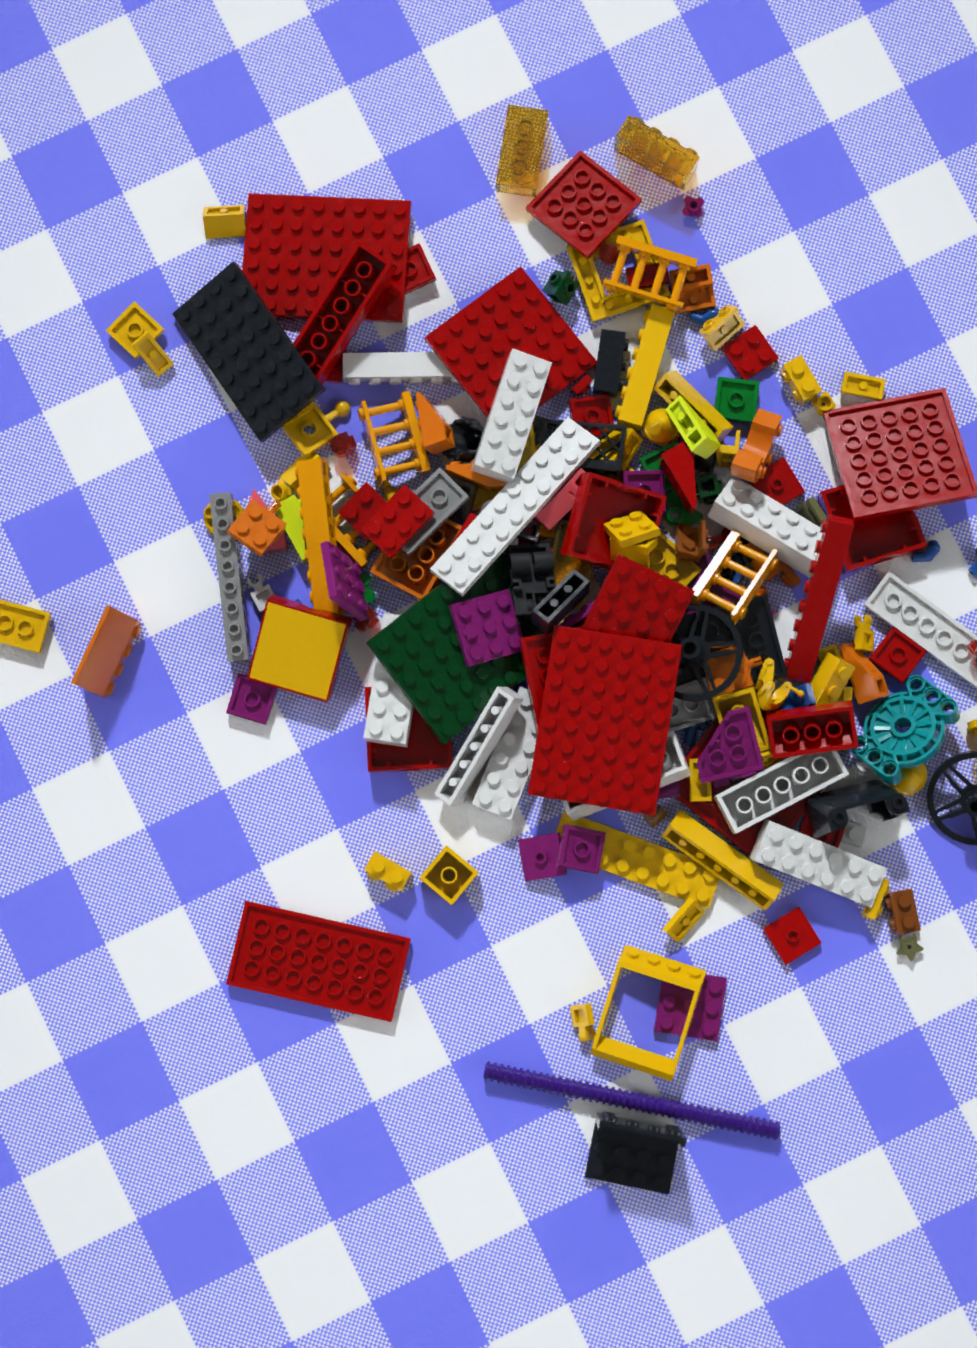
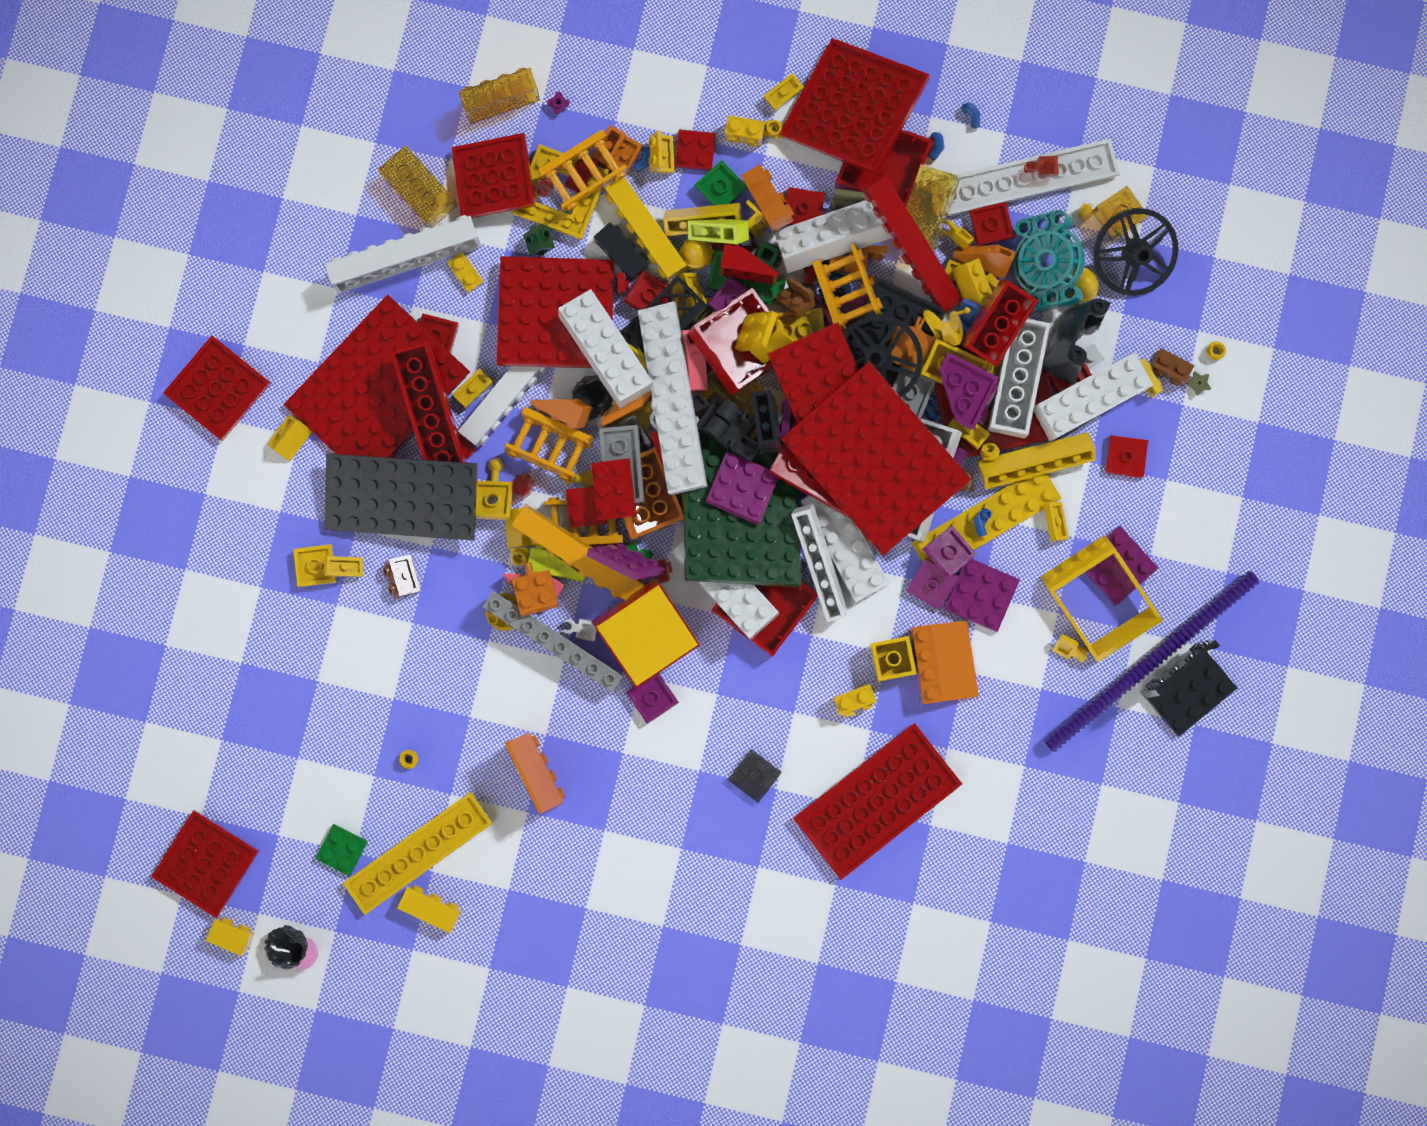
camera: 55 degrees left, 0 degrees up
(31, 537) = (402, 759): none -> yellow plate
(183, 408) = (401, 576): none -> bracket
(217, 128) = (217, 388): none -> red plate
(256, 839) = (754, 776): none -> clear smoke plate
(390, 336) = (473, 388): none -> yellow plate
(454, 185) = (402, 254): none -> white brick
(483, 922) = (944, 662): none -> orange slope
(484, 249) = (465, 272): none -> yellow plate
(568, 907) = (982, 594): none -> magenta plate
(630, 853) = (980, 521): none -> blue arm
(695, 813) = (989, 451): none -> yellow plate
(869, 588) = (931, 201): none -> clear yellow brick
(956, 939) = (1221, 348): none -> yellow plate

